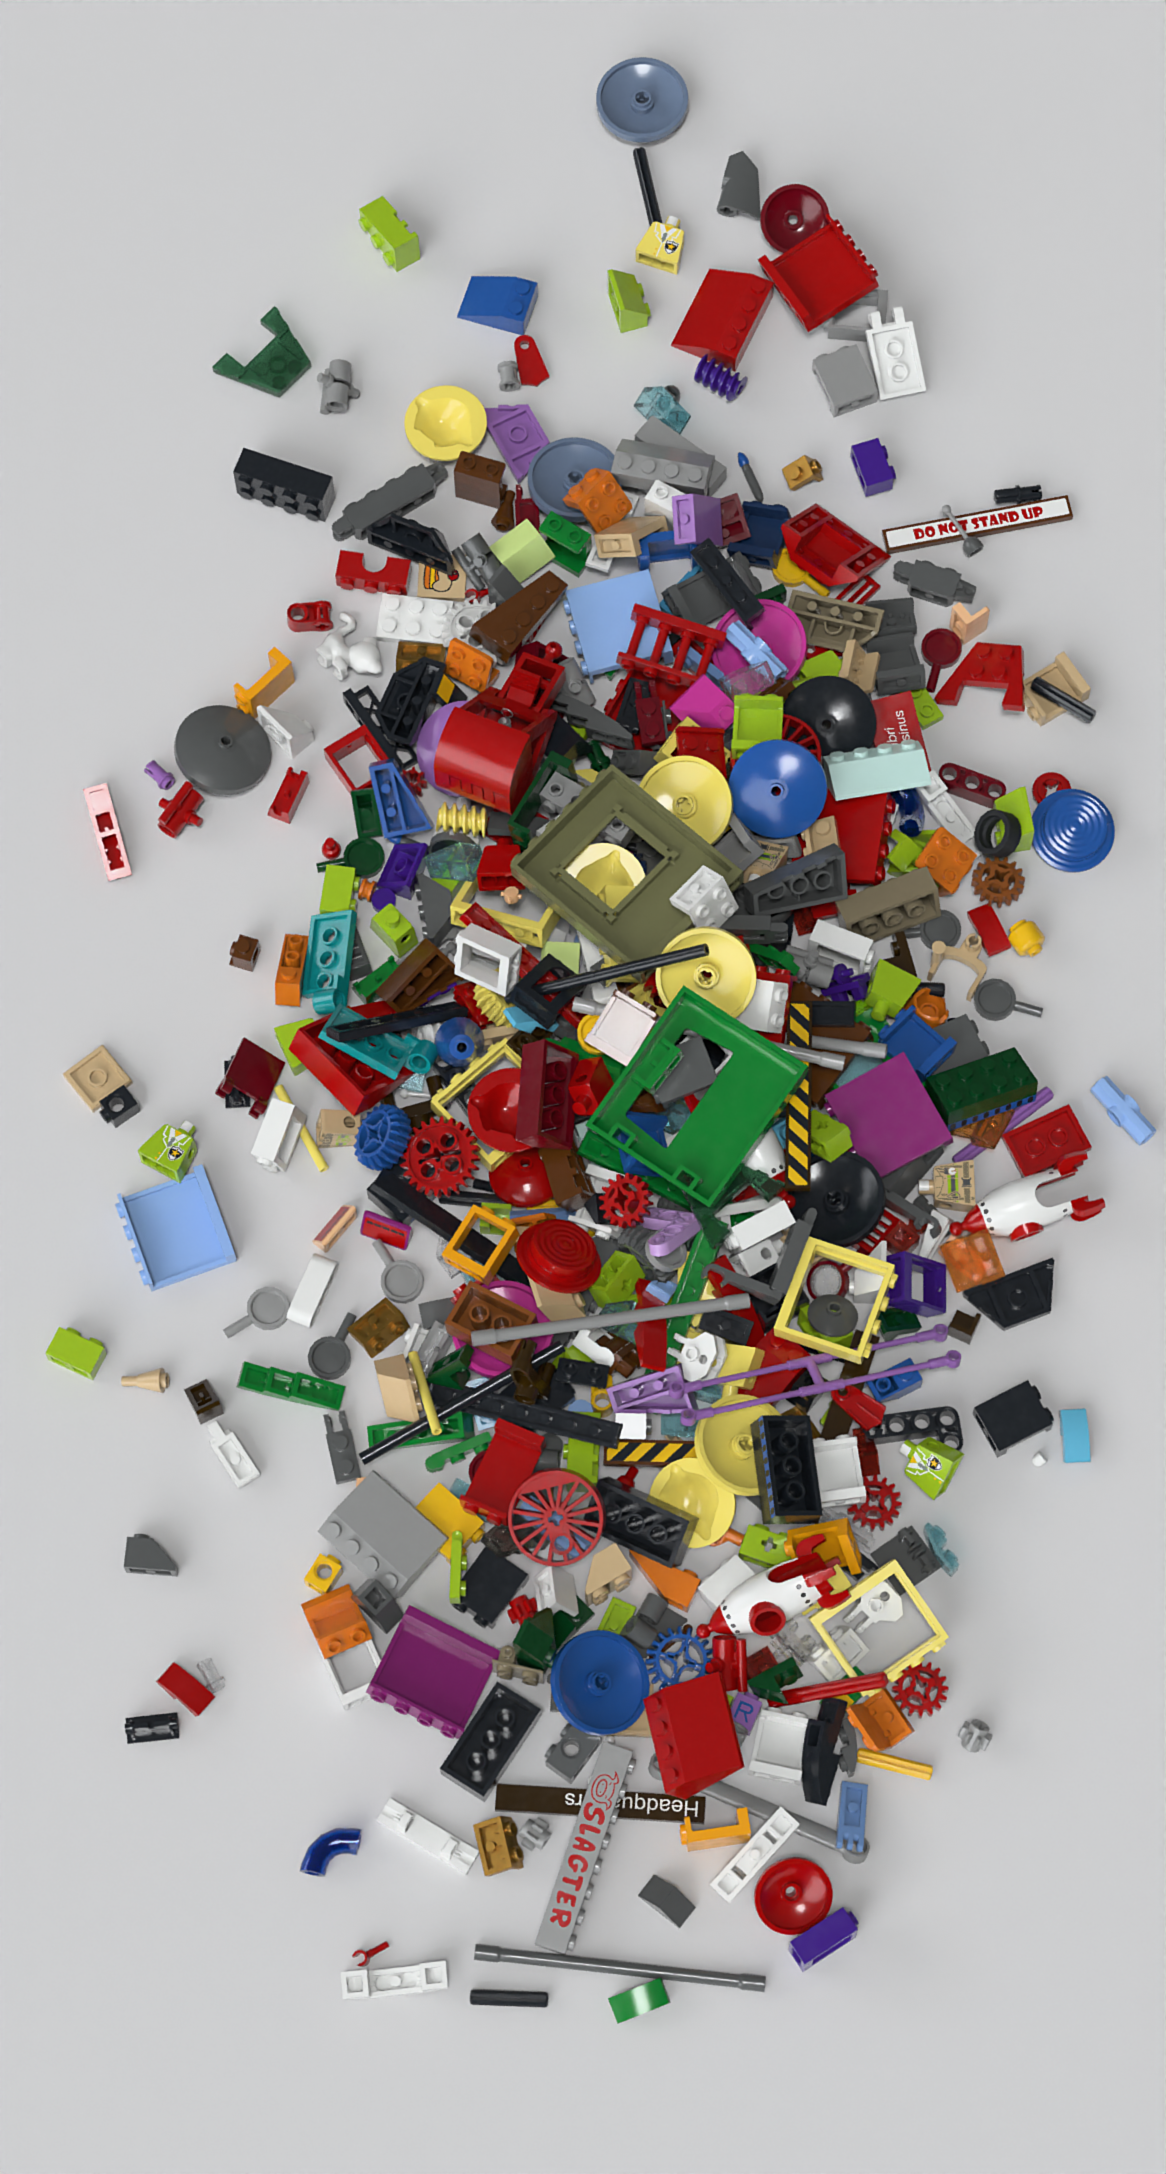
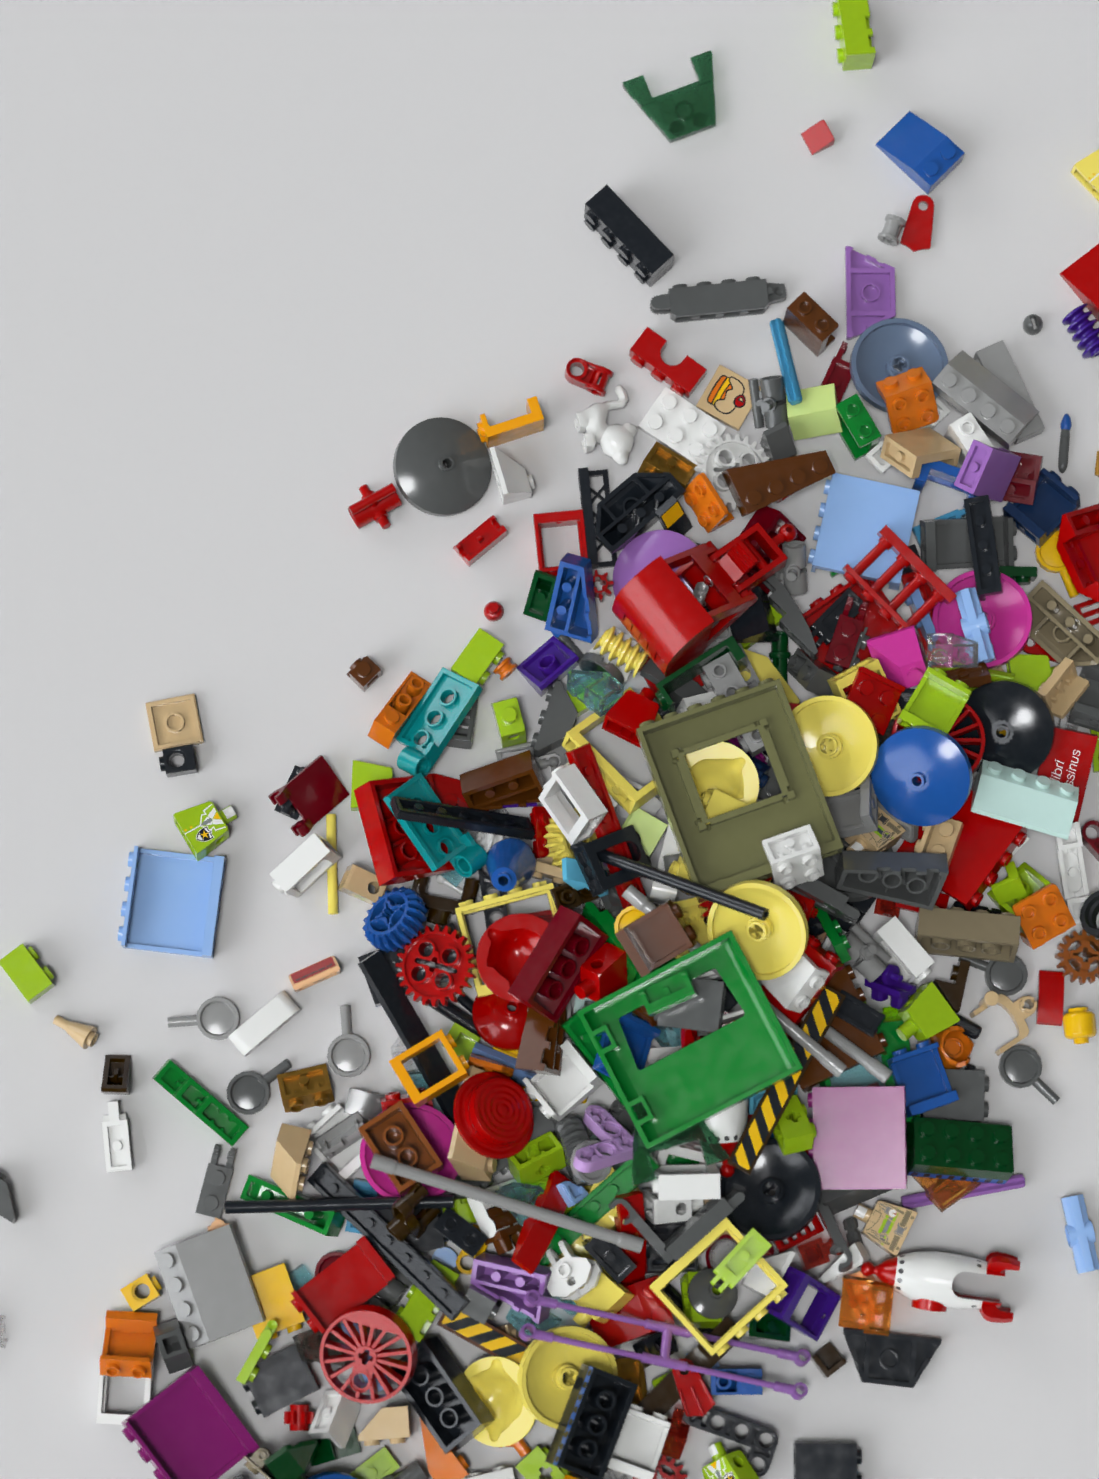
camera: 20 degrees right, 10 degrees up
(107, 832) = (299, 492): slope -> none
(164, 779) = (374, 460): medium lavender pin -> none
(336, 386) = (726, 161): light grey pin -> none
(363, 854) = (517, 633): dark green piece -> none
(366, 988) = (470, 759): green hinge -> none
(382, 898) = (515, 685): dark purple tile -> none
(386, 1229) = (358, 1001): slope -> none
(405, 332) = (818, 137): none -> slope
(412, 542) = (719, 351): black wedge -> none
(425, 1393) = (311, 1177): light yellow piece -> none
(445, 422) = (808, 249): light yellow piece -> none
(452, 1369) = (346, 1168): dark green slope -> none
(457, 1452) = (315, 1241): green hinge -> none
(475, 522) = (785, 361): none -> dark azure axle
(479, 594) = (754, 432): red hand -> none
(504, 517) = (816, 367): reddish brown cone -> none
(511, 895) = (627, 749): light nougat piece -> none
(592, 1207) = (555, 1088): black slope -> none
(627, 301) = (1040, 212): lime slope -> none
(629, 1477) = (453, 1345): red piece -> none
(635, 1204) = (577, 1107): red gear -> none
(663, 406) = (1017, 336): clear light blue slope -> none
(842, 1262) = (740, 1260): none -> lime hinge
(910, 811) = (1036, 854): clear blue cylinder -> none
(1044, 1140) = (994, 1227): red plate -> none

